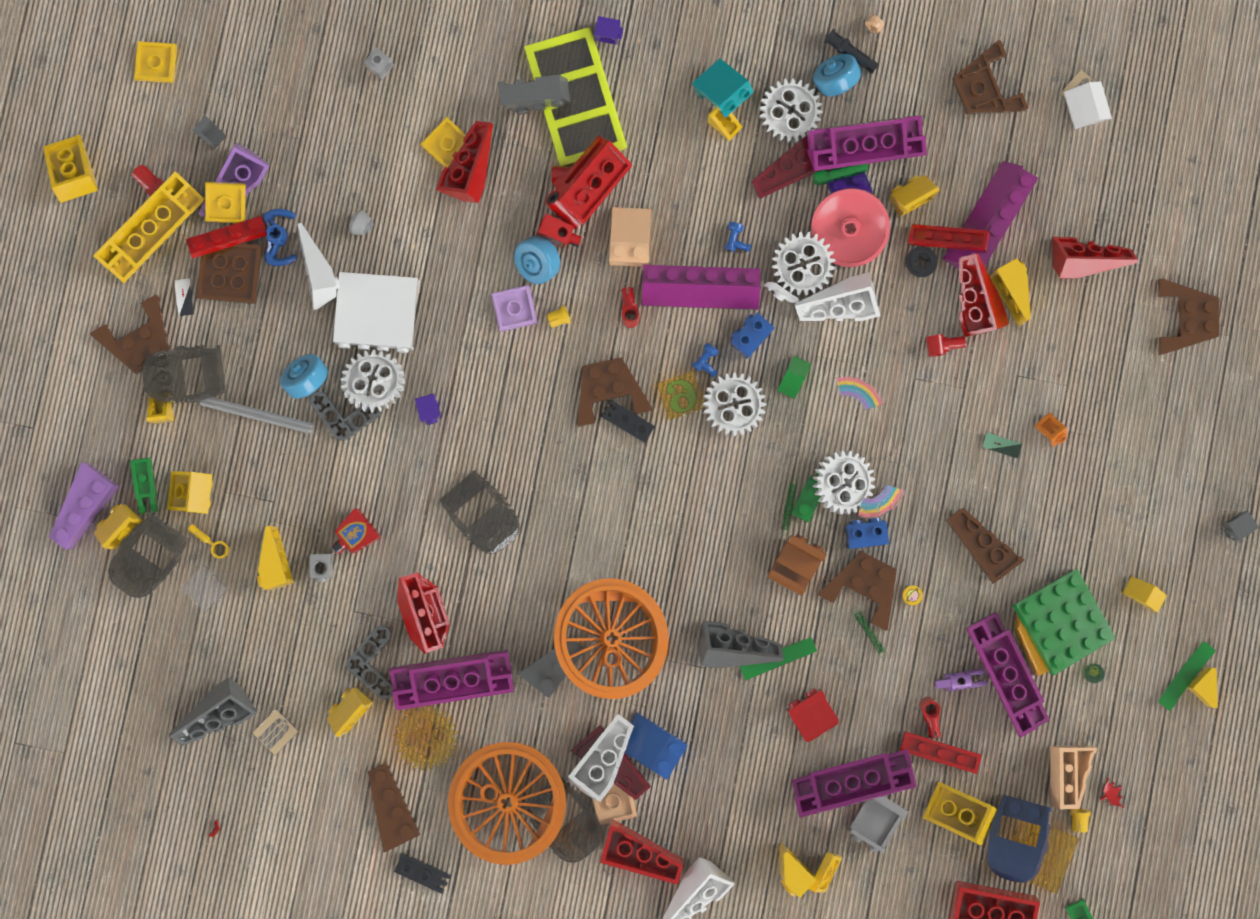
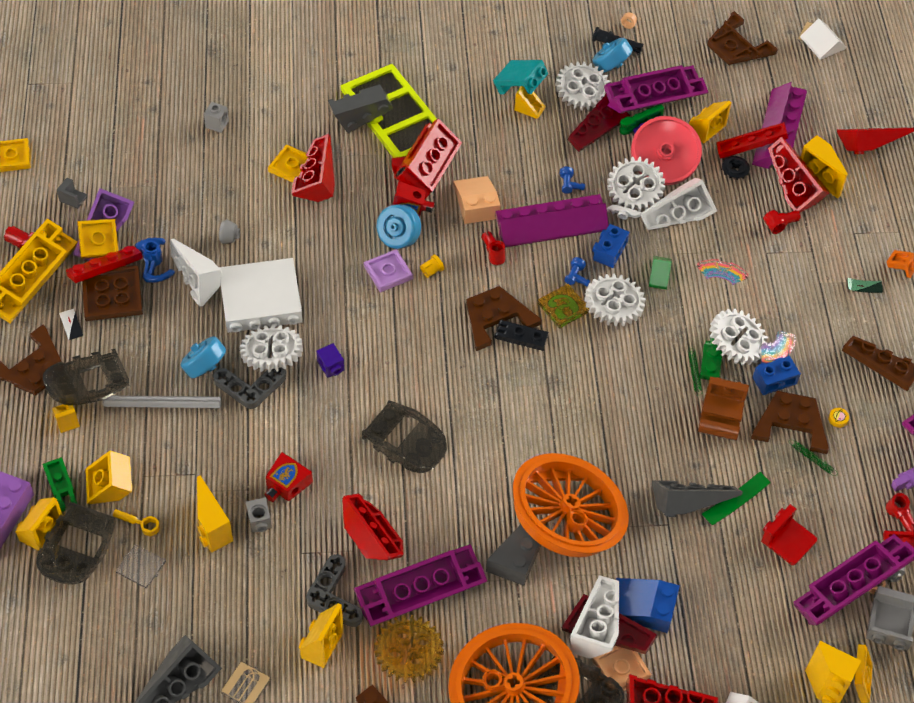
camera: 20 degrees left, 30 degrees down
(608, 30) = (410, 62): dark purple brick -> none

